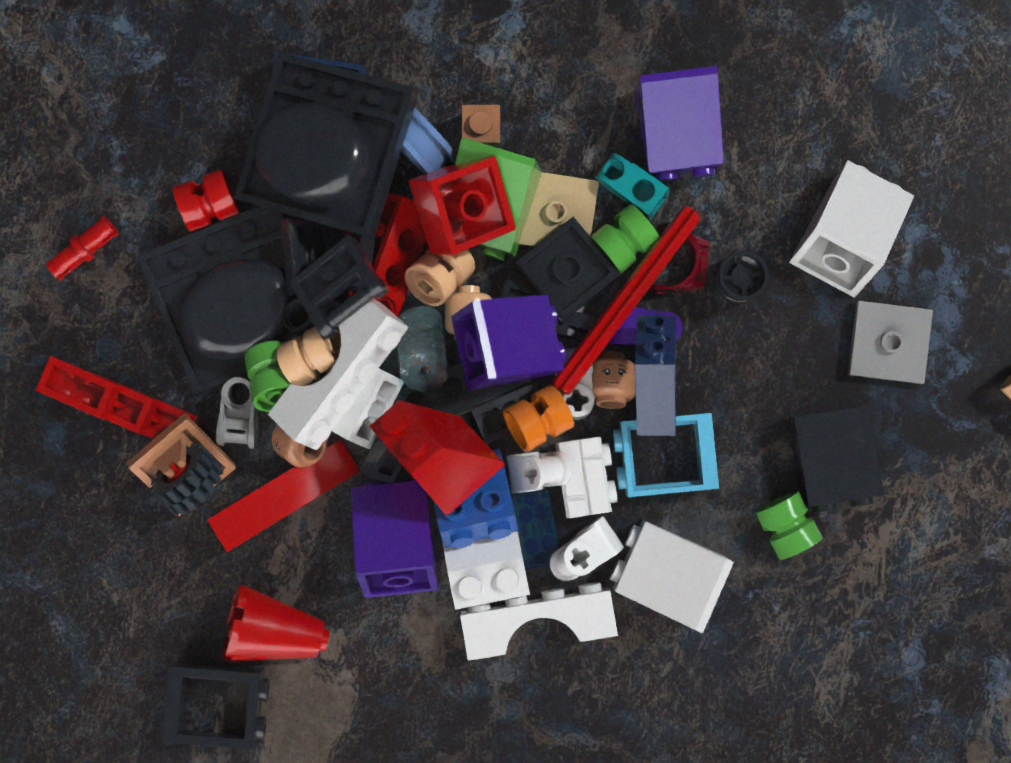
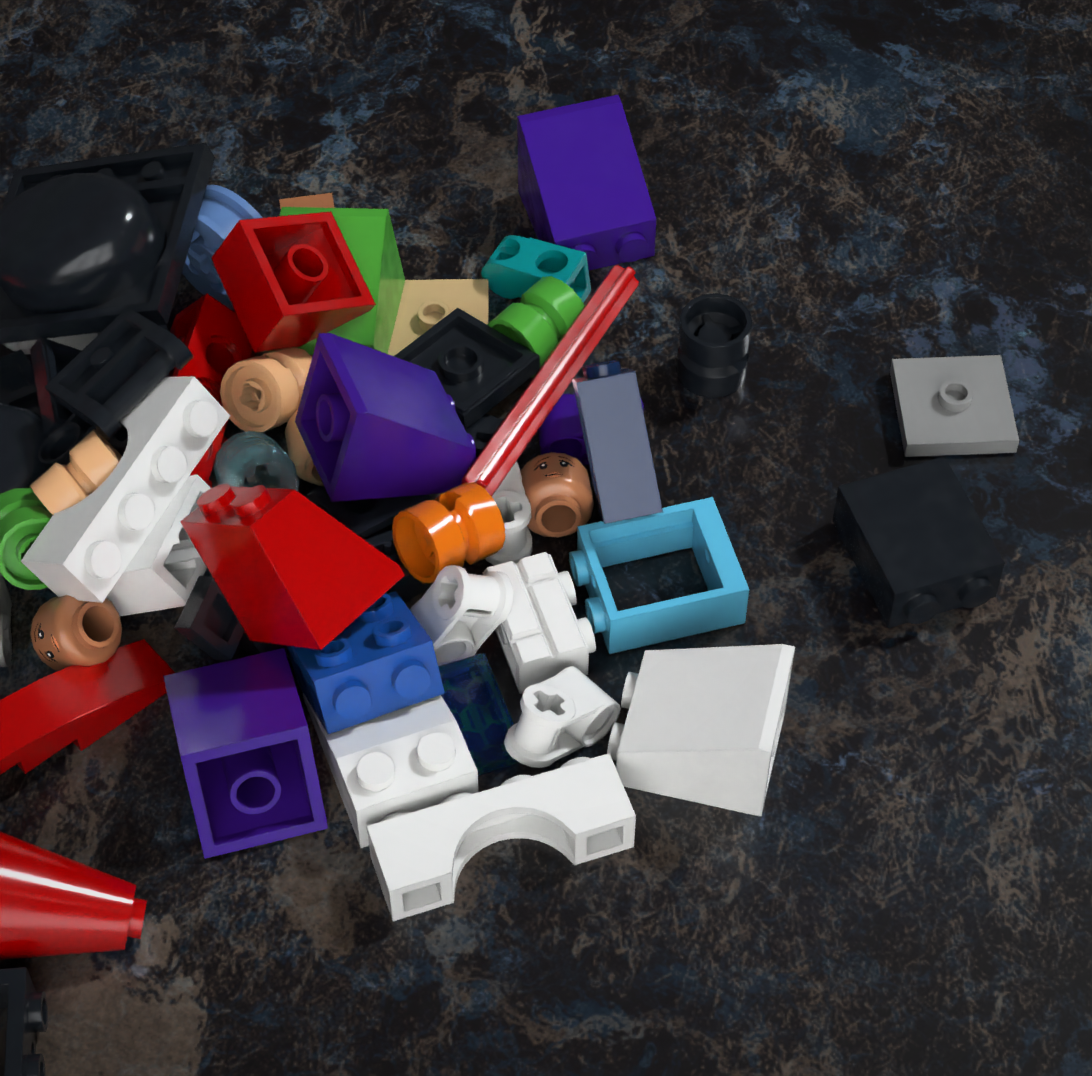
camera: 10 degrees left, 35 degrees down
(696, 278) = (647, 337): dark red helmet -> none
(788, 524) = (879, 642): bright green wheel -> none
(852, 229) = (853, 280): white slope -> none

